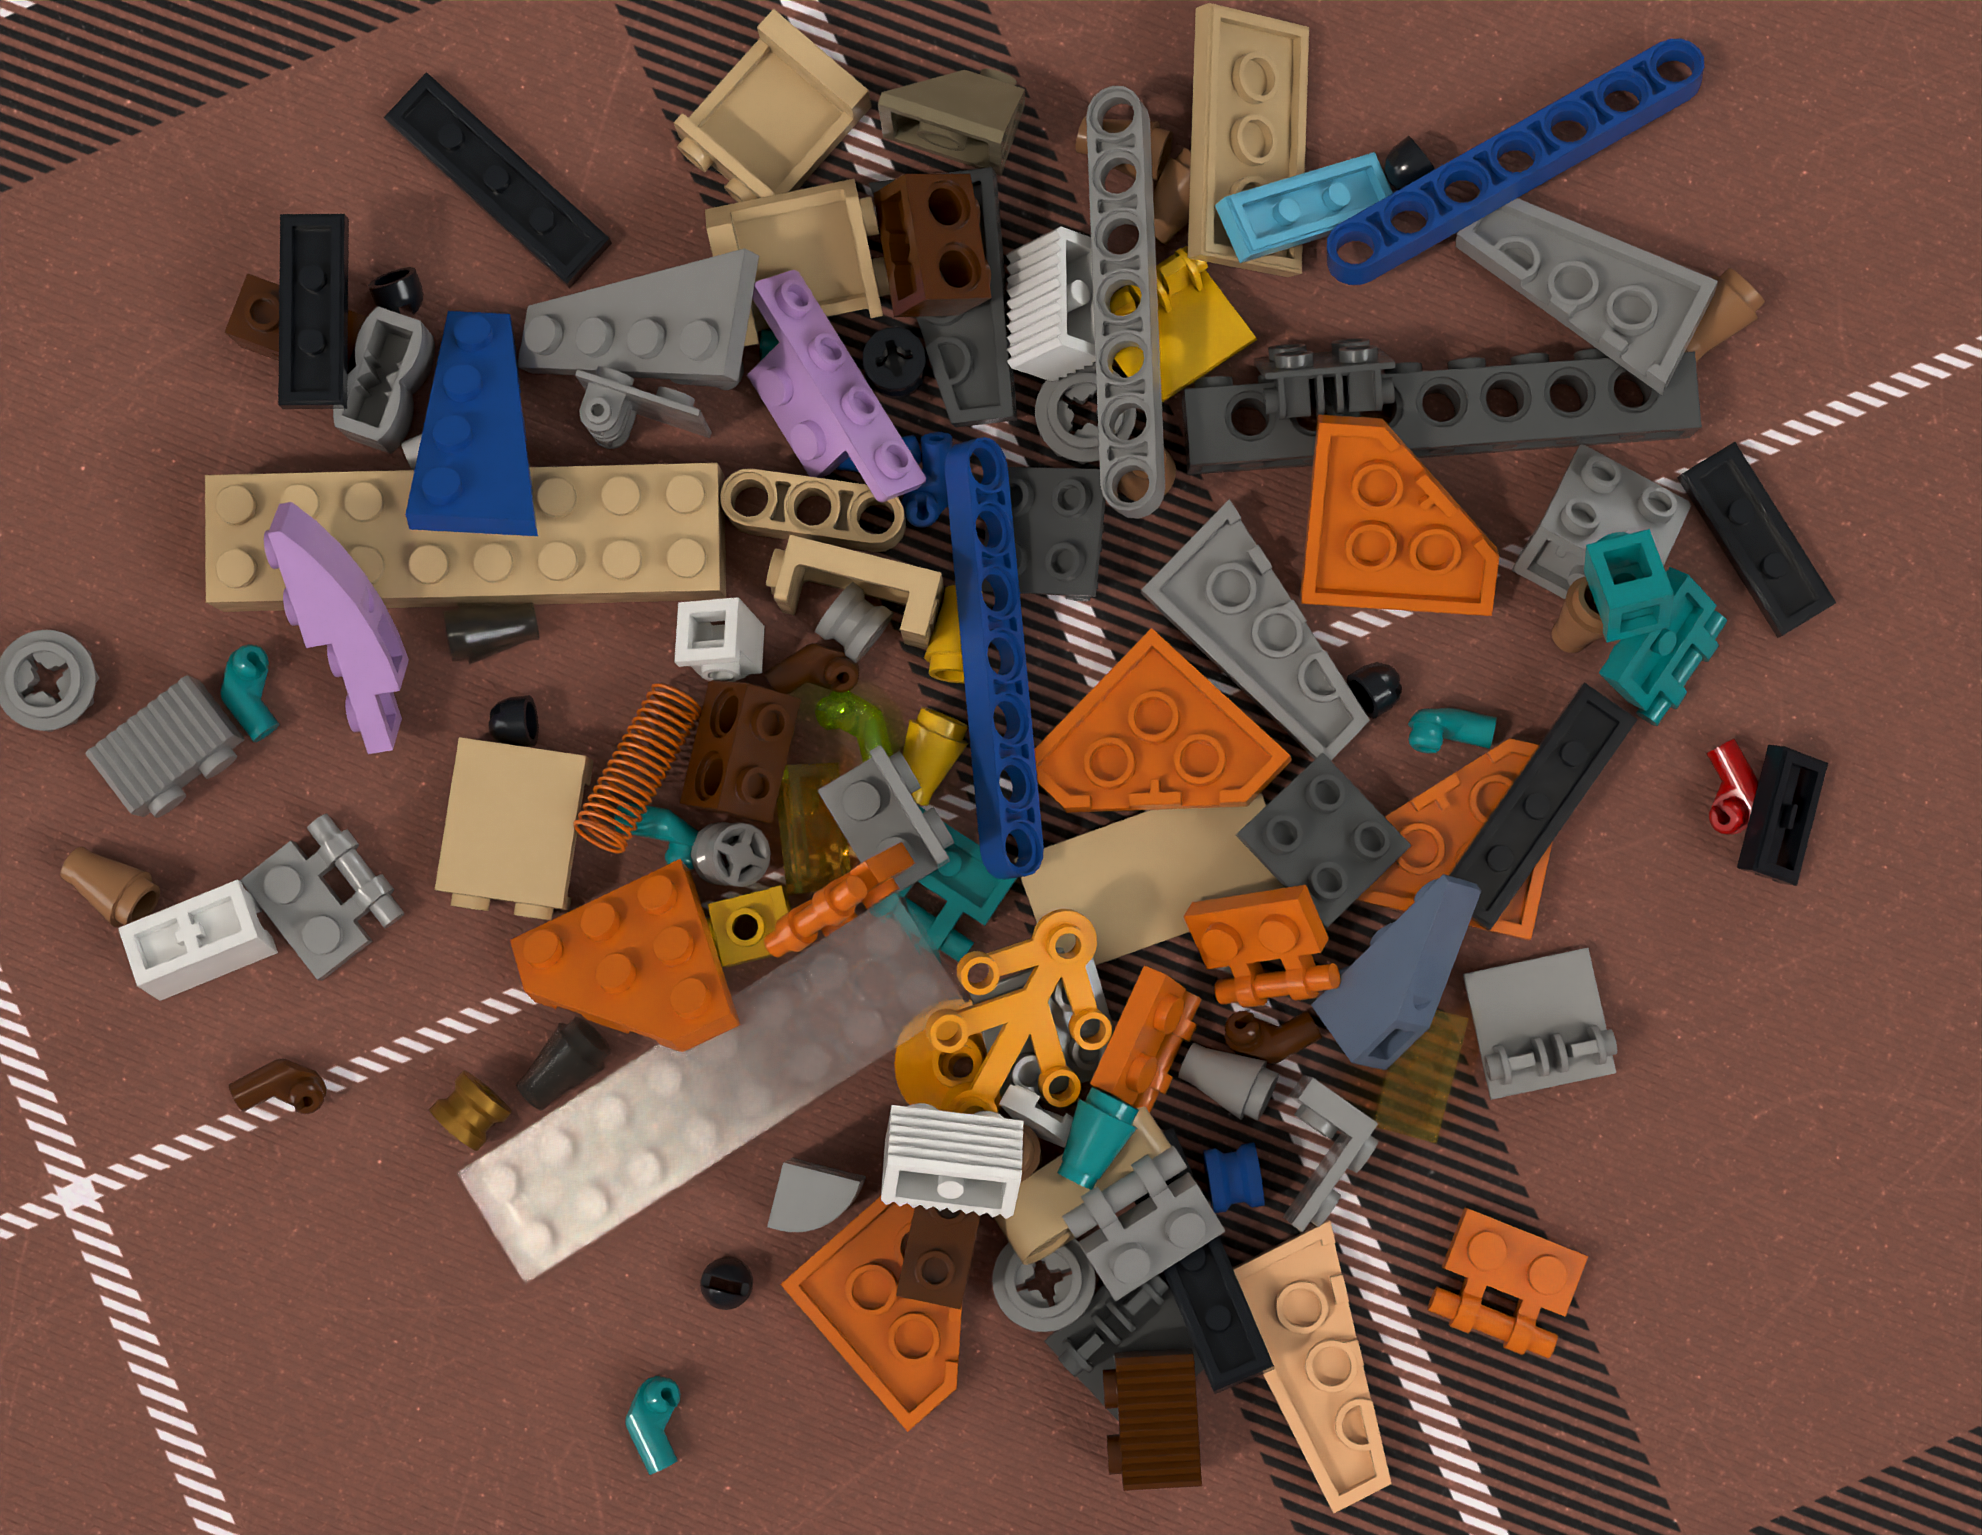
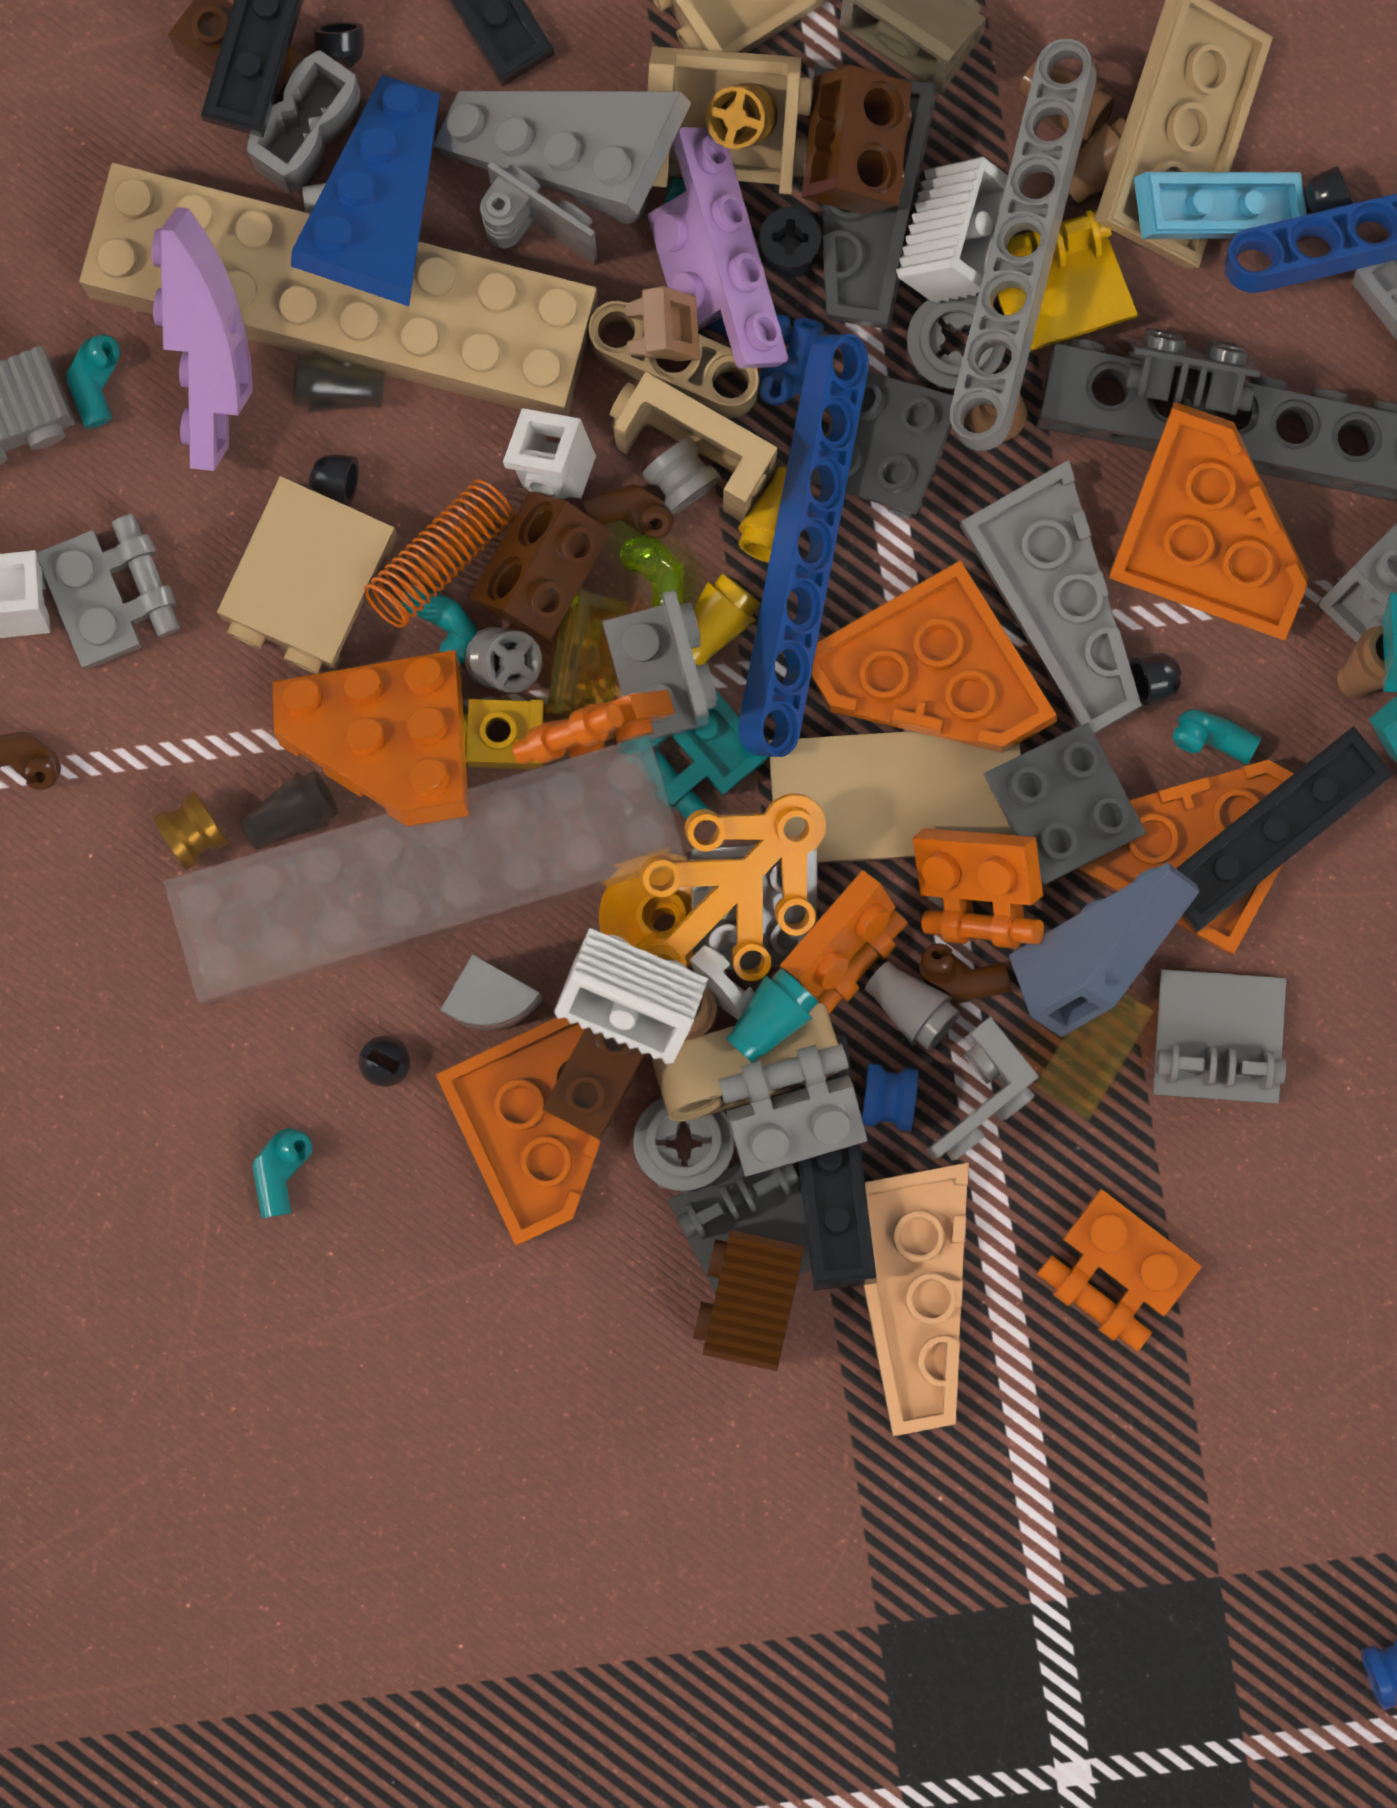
camera: 10 degrees right, 0 degrees up
(798, 479) = (668, 325): none -> medium nougat tile
(800, 259) = (728, 115): none -> pearl gold wheel

